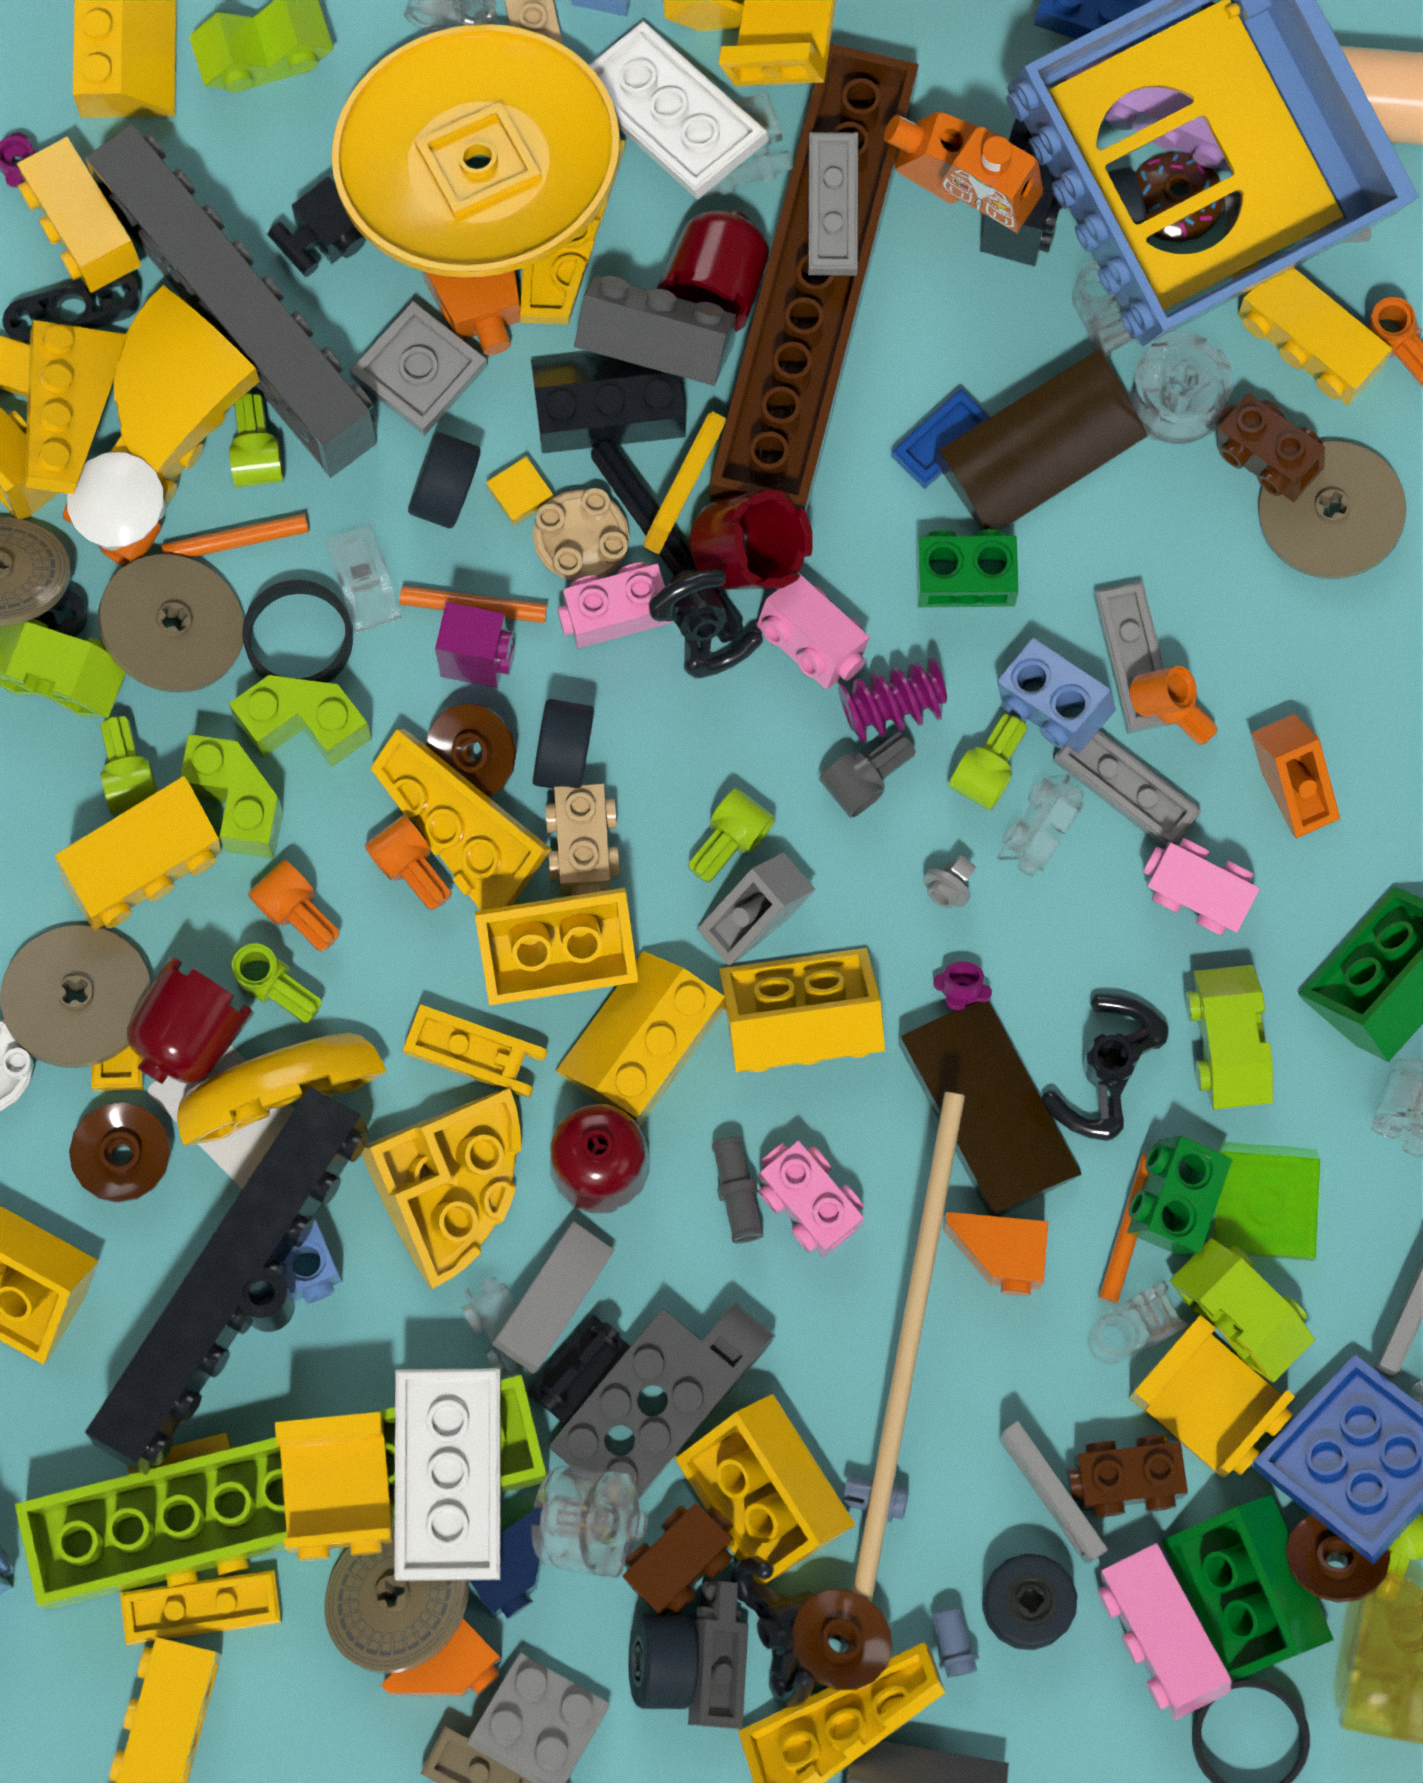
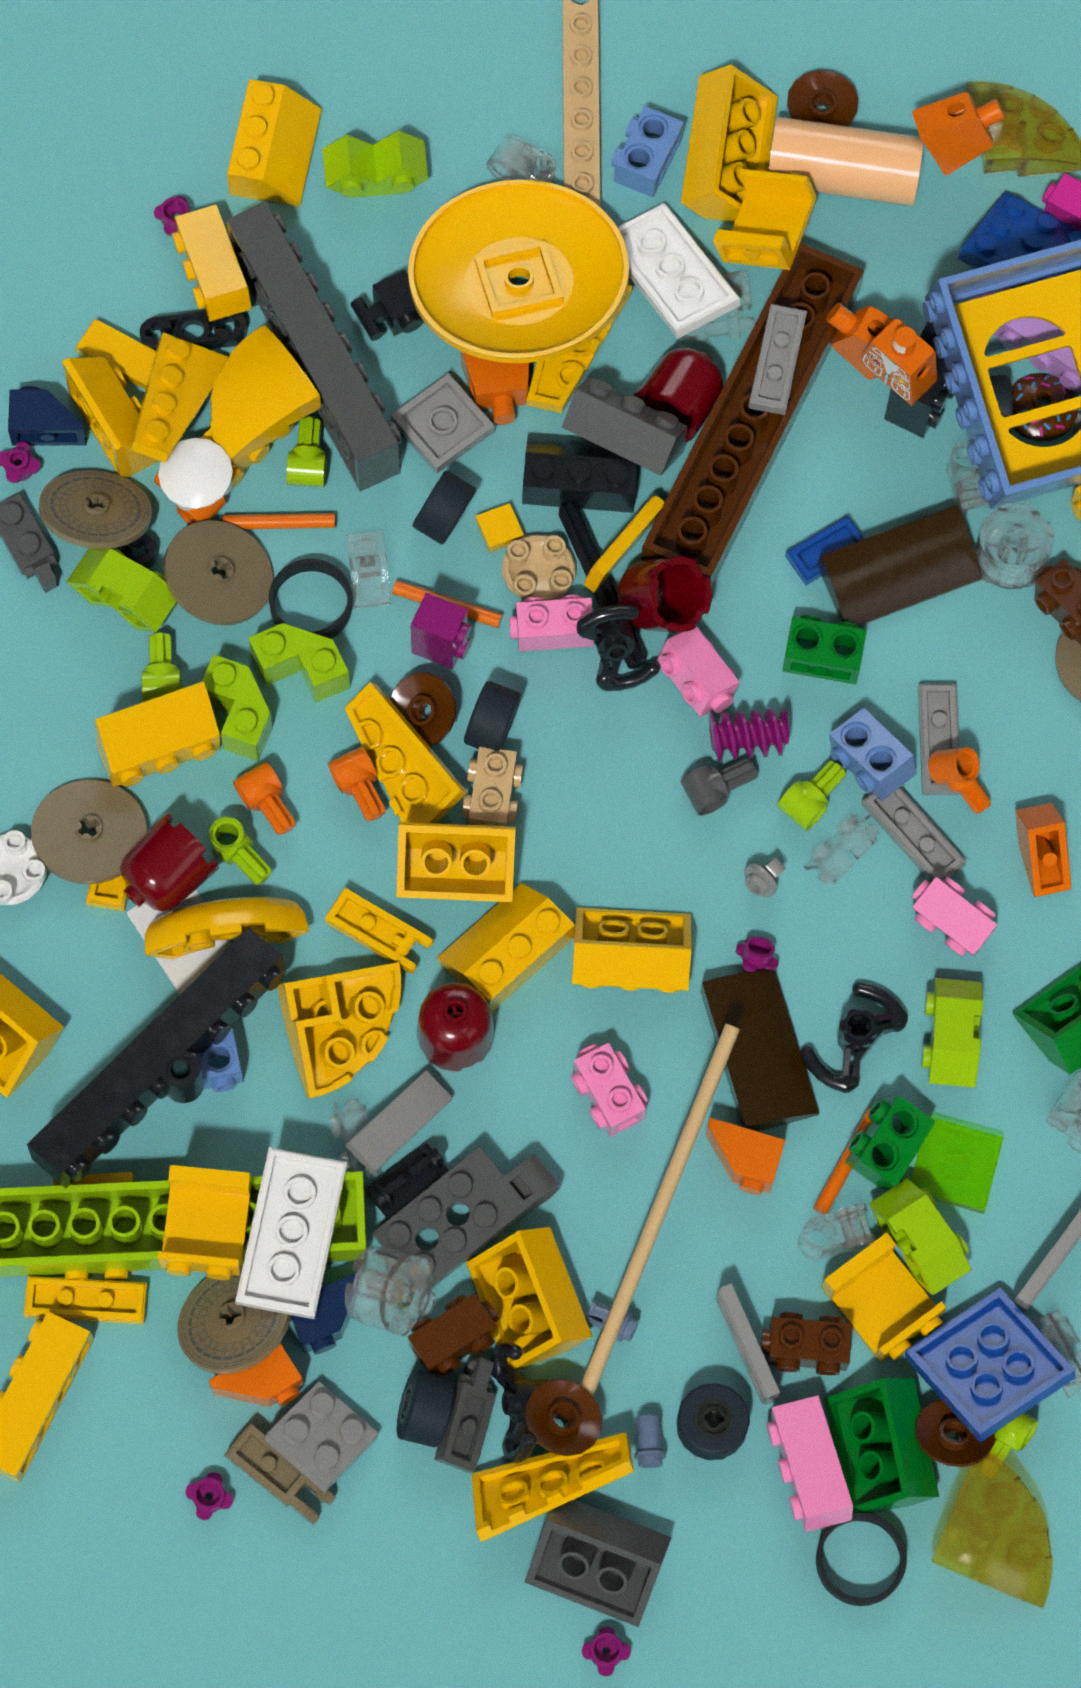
camera: 10 degrees right, 5 degrees down
(105, 1132) = (91, 935): reddish brown dish -> none
(737, 826) = (611, 804): lime axle -> none
(737, 1190) = (555, 1072): dark grey pin -> none
(756, 907) = (613, 866): light grey slope -> none

